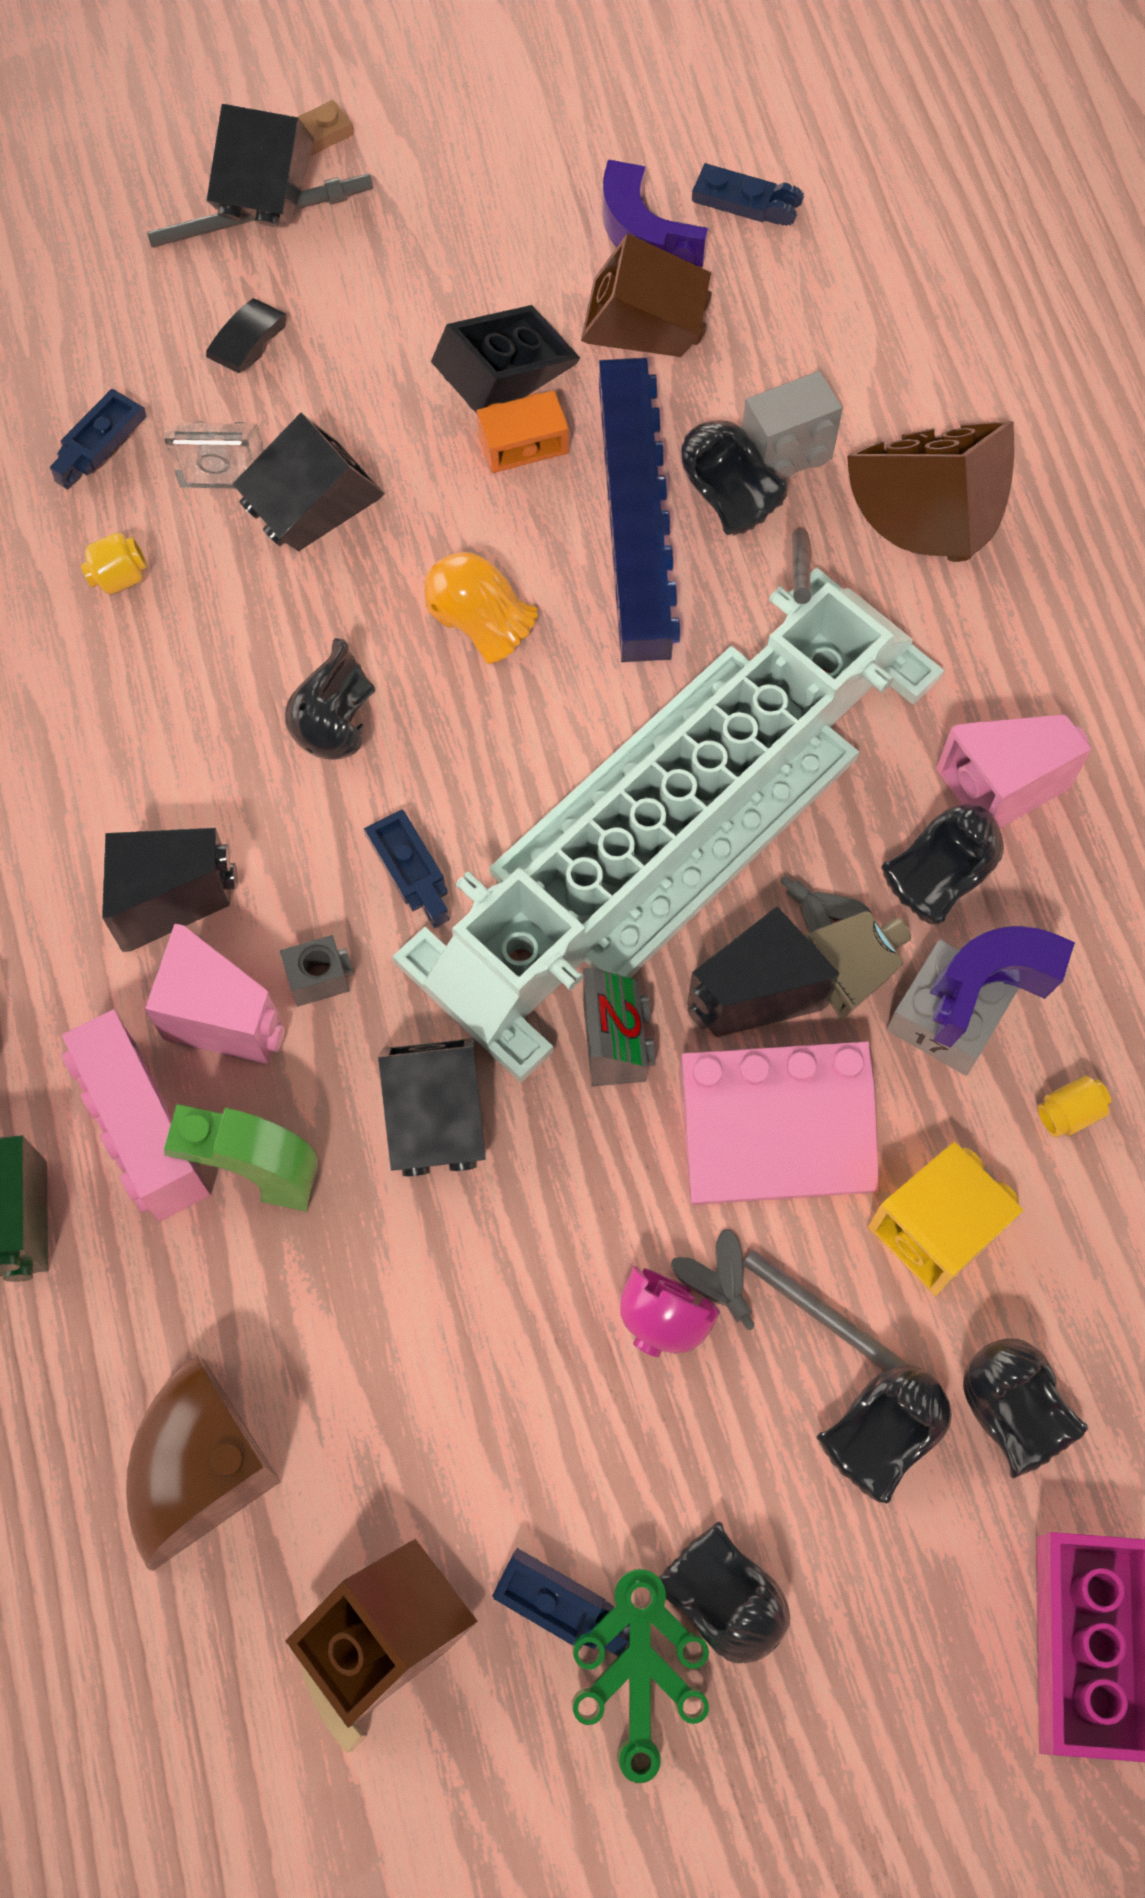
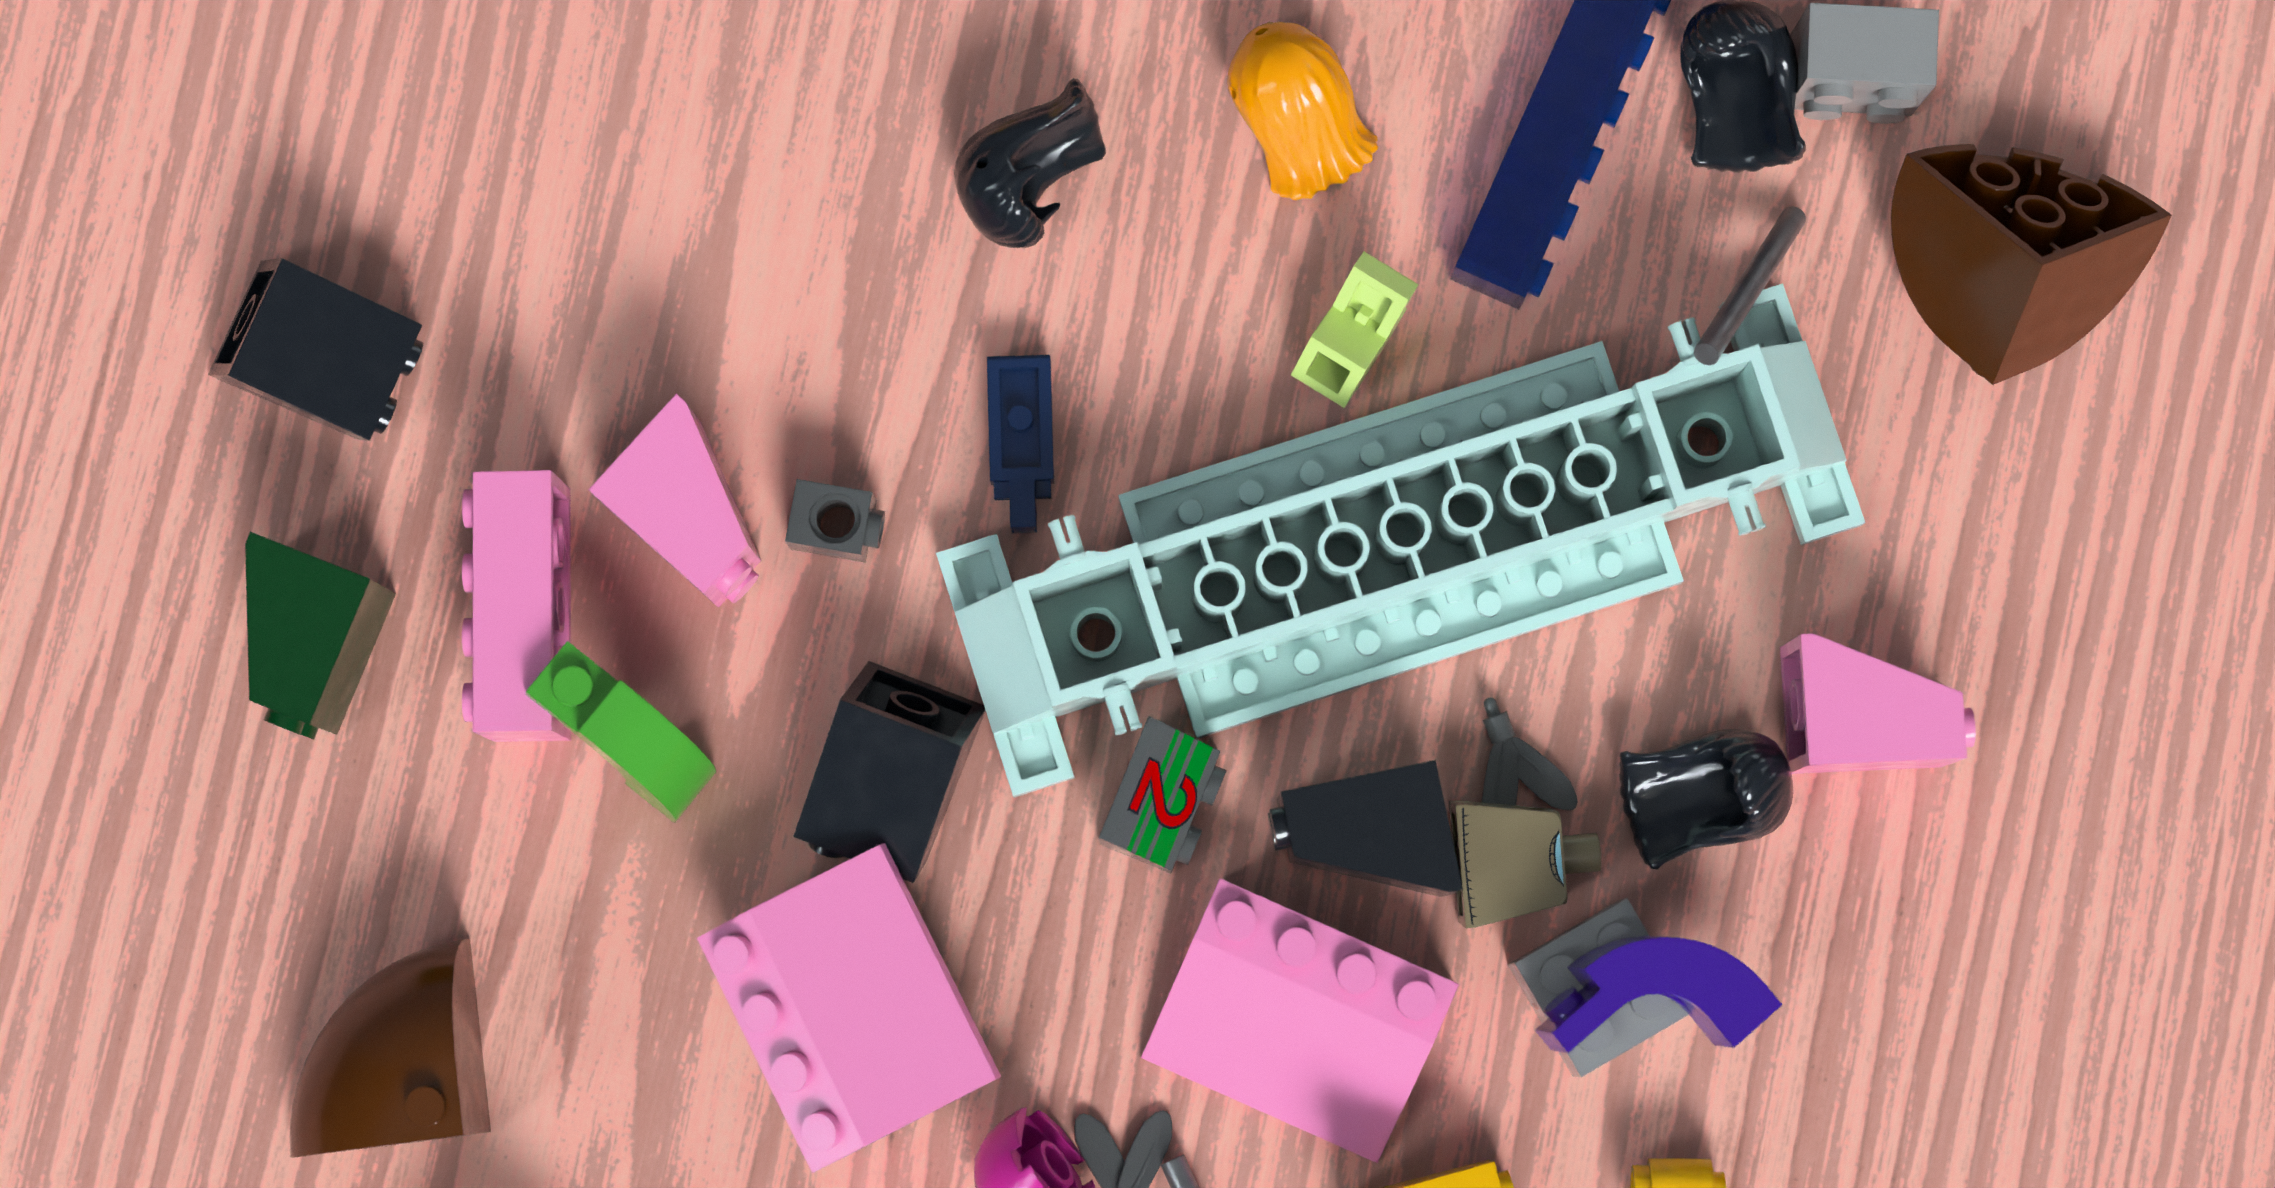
camera: 30 degrees right, 15 degrees up
(163, 882) = (694, 310): black slope -> none
(485, 1260) = (848, 1007): none -> bright pink slope
(581, 703) = (1354, 329): none -> yellowish green brick

